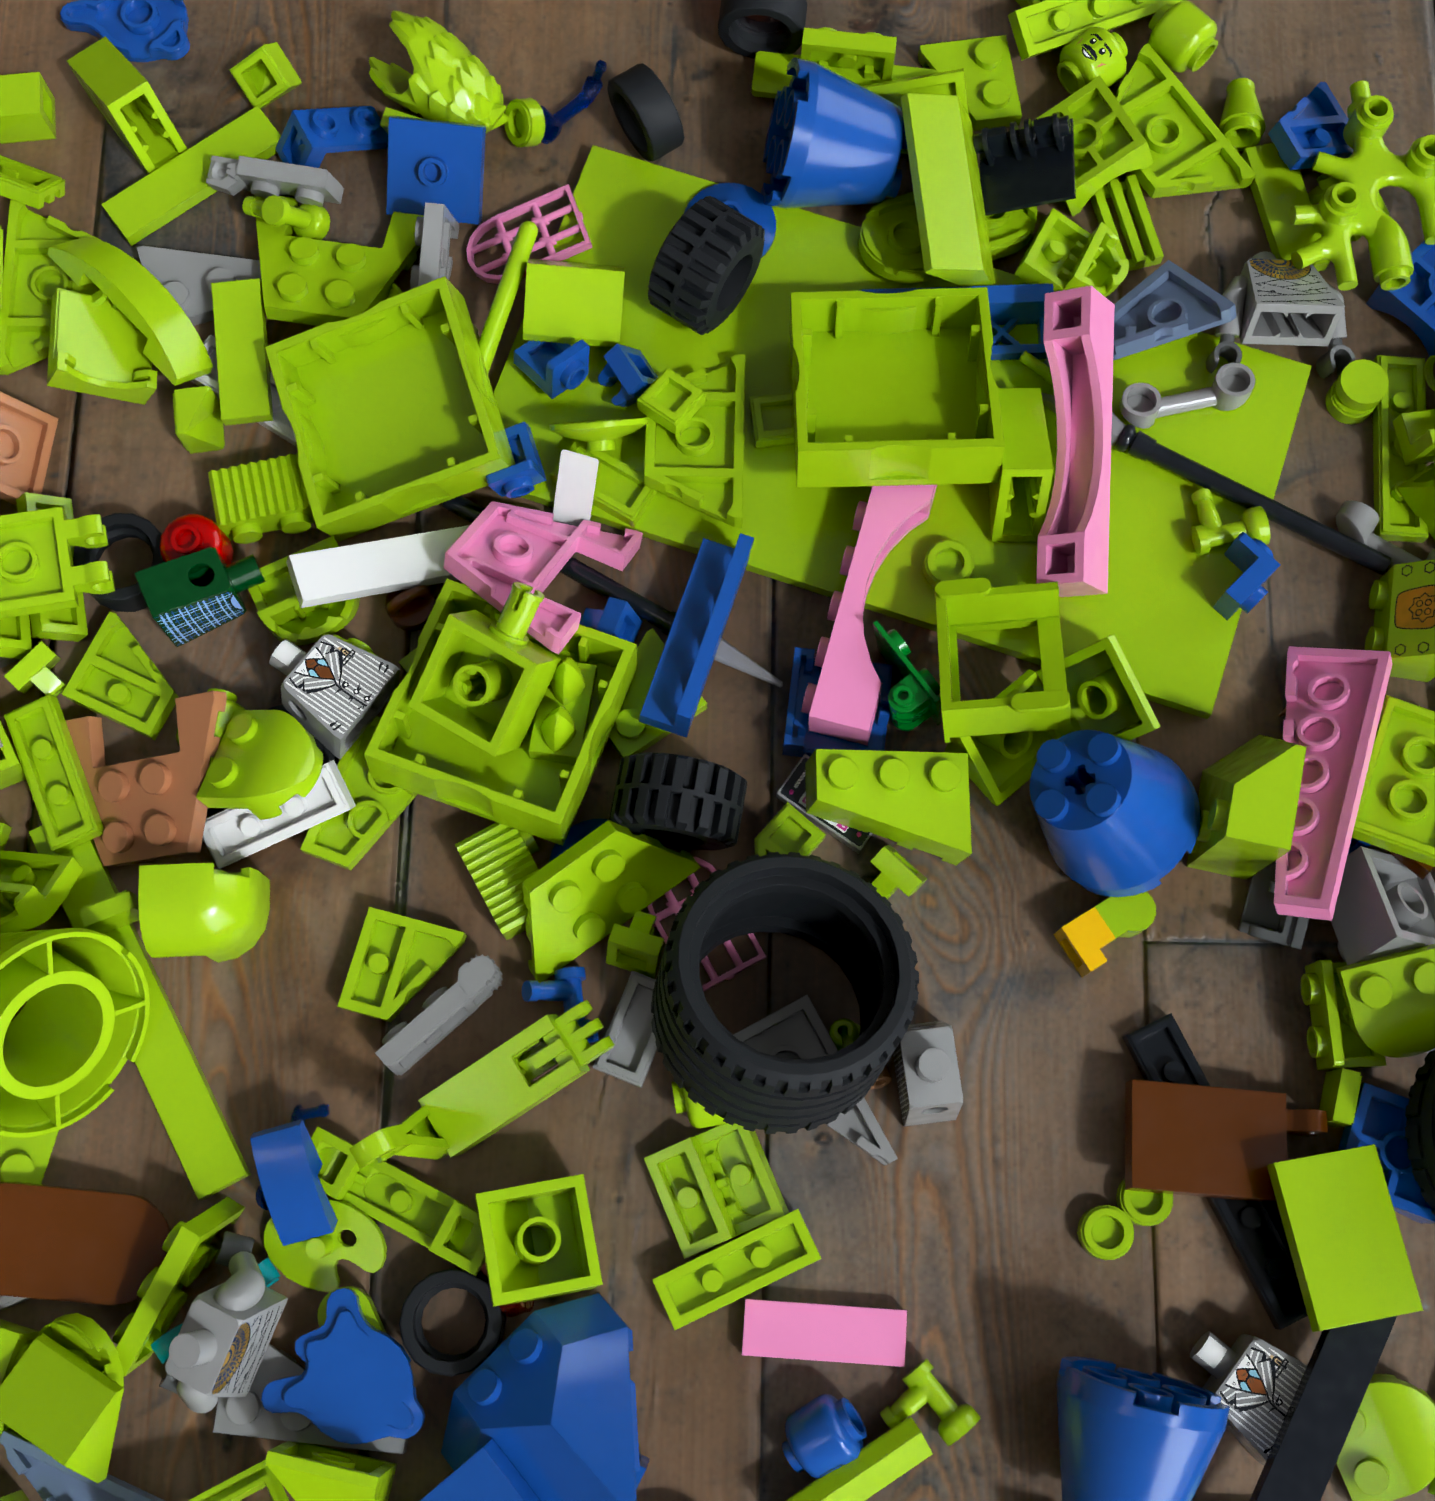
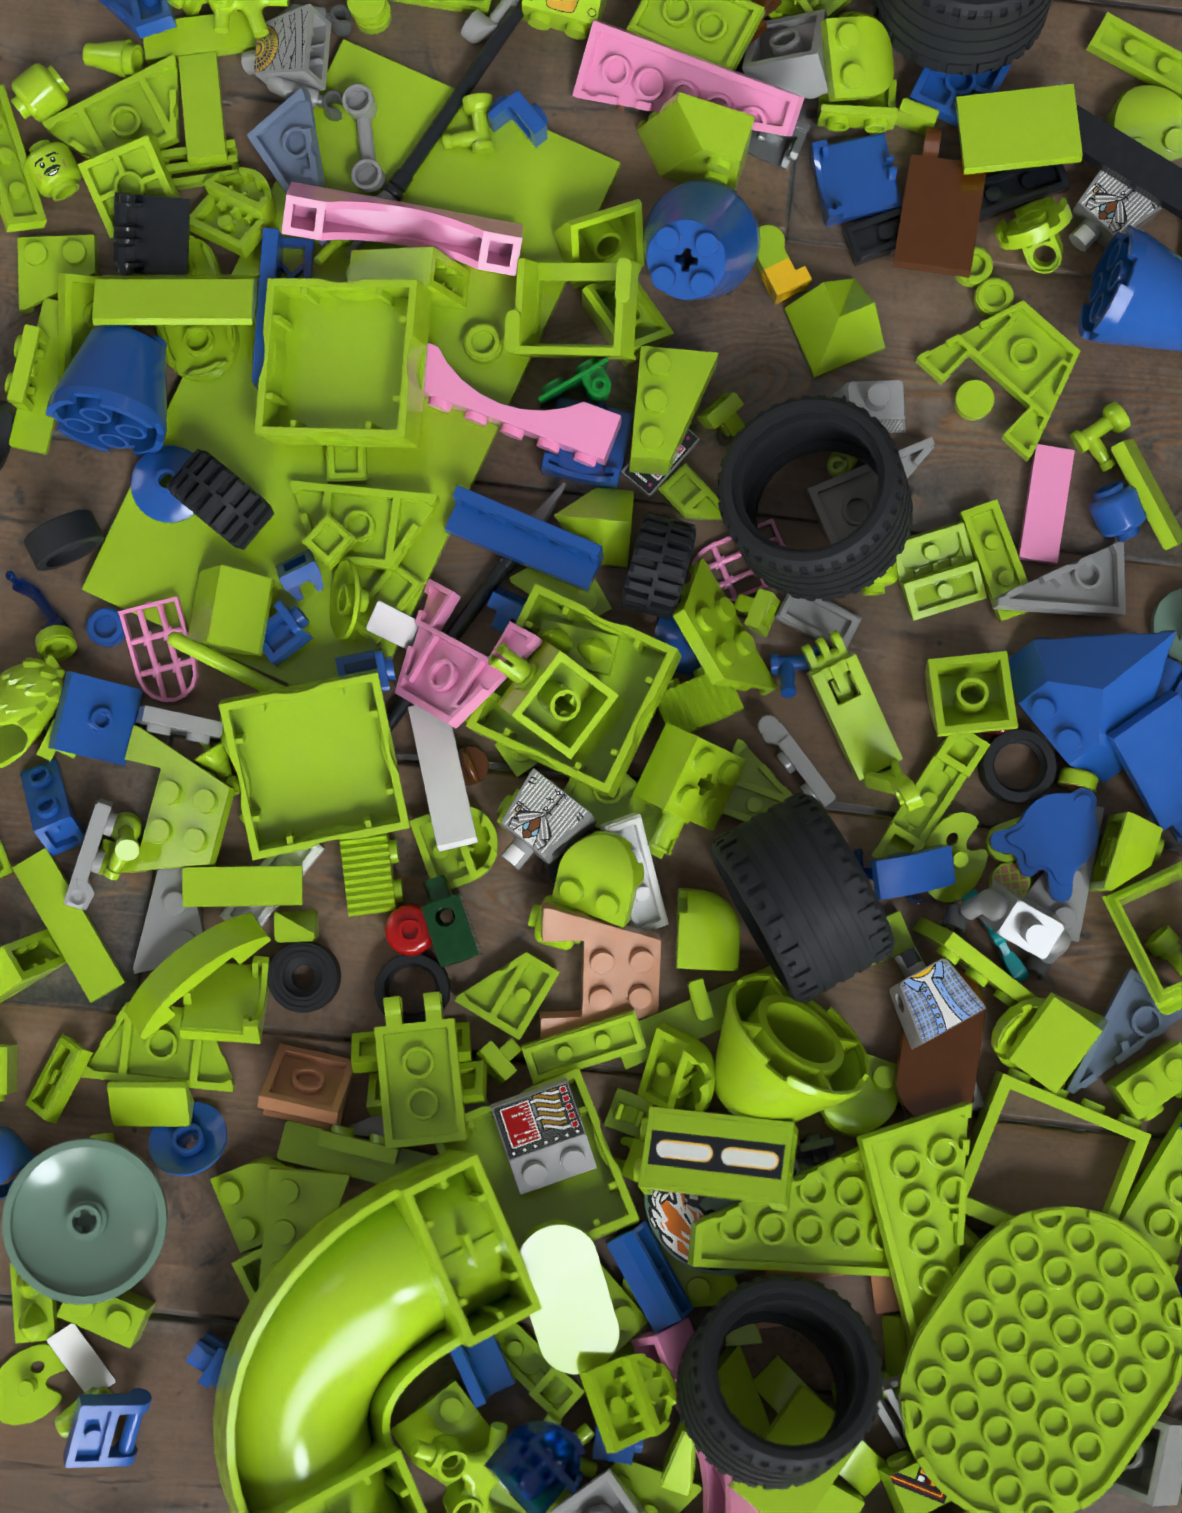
camera: 85 degrees left, 10 degrees up
(117, 1221) = (931, 998): none -> torso
(121, 414) = (326, 976): none -> black tyre
(230, 1016) = (803, 896): none -> black tyre
(296, 1320) = (1009, 875): none -> tile
(394, 866) = (688, 783): none -> lime brick
(437, 1411) = (1075, 778): none -> lime tile
(550, 174) = (105, 627): none -> blue tile
(710, 1397) = (1081, 588): none -> light grey wing
(736, 730) = (604, 519): none -> lime slope
(958, 1216) = (974, 400): none -> lime tile
(1026, 1279) = (1022, 357): none -> lime wing
(1035, 1015) = (835, 325): none -> lime slope
(1195, 216) = (203, 108): none -> lime tile
(1211, 1281) = (1033, 227): none -> lime tile
(1240, 1022) = (854, 178): none -> blue piece

